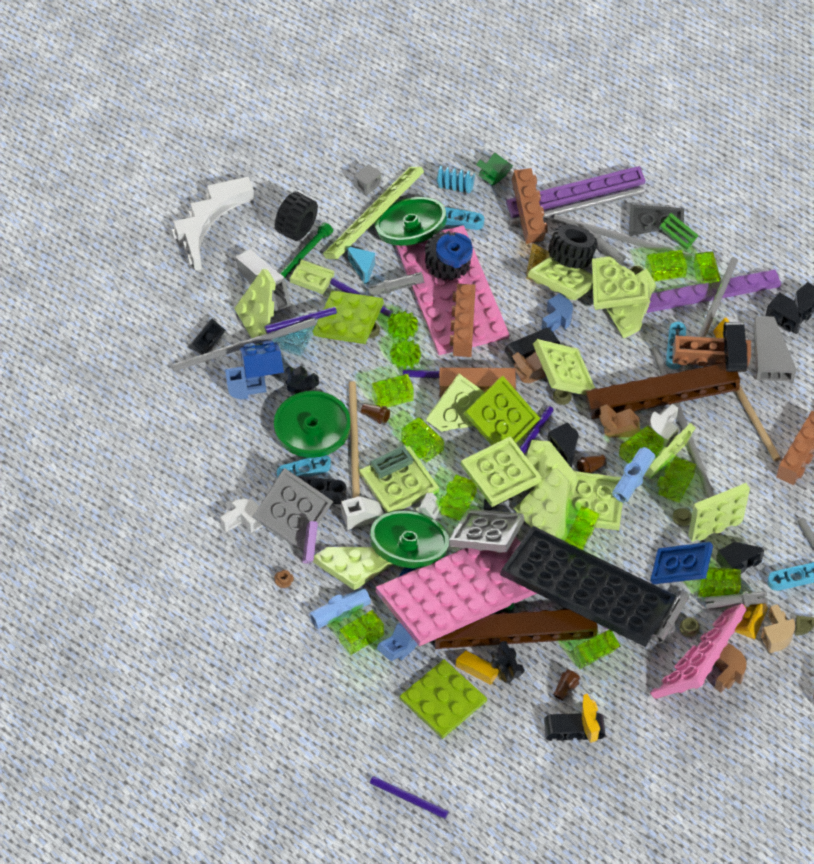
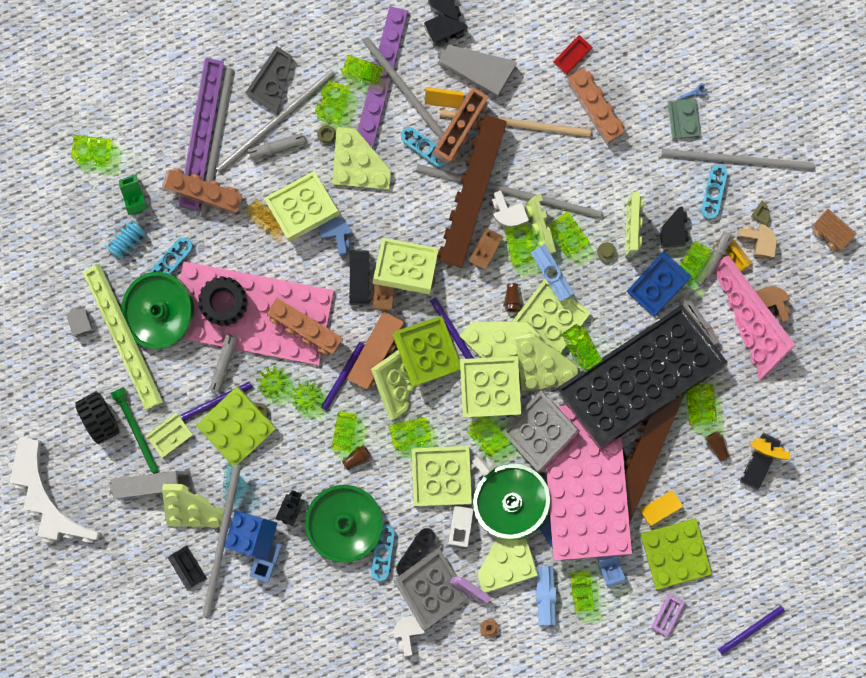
camera: 65 degrees left, 30 degrees up
(317, 315) = (225, 476): dark purple bar -> none
(354, 440) = (380, 494): tan piece -> none
(362, 262) = (179, 380): medium azure slope -> none
(390, 722) = (660, 629): none -> lavender tile
(393, 464) = (422, 491): sand green tile -> none
(454, 258) = (222, 292): blue plate -> none
(505, 662) = (673, 485): black hips -> none
(512, 130) = (94, 145): none -> clear neon green brick
(565, 441) = (480, 308): black slope -> none
(572, 246) = (265, 166): black tyre -> none
(616, 285) = (339, 165): yellowish green plate -> none
(680, 224) = (315, 62): bright green tile -> none
(689, 627) = (716, 311): olive plate -> none
(735, 347) = (477, 107): black beam -> none

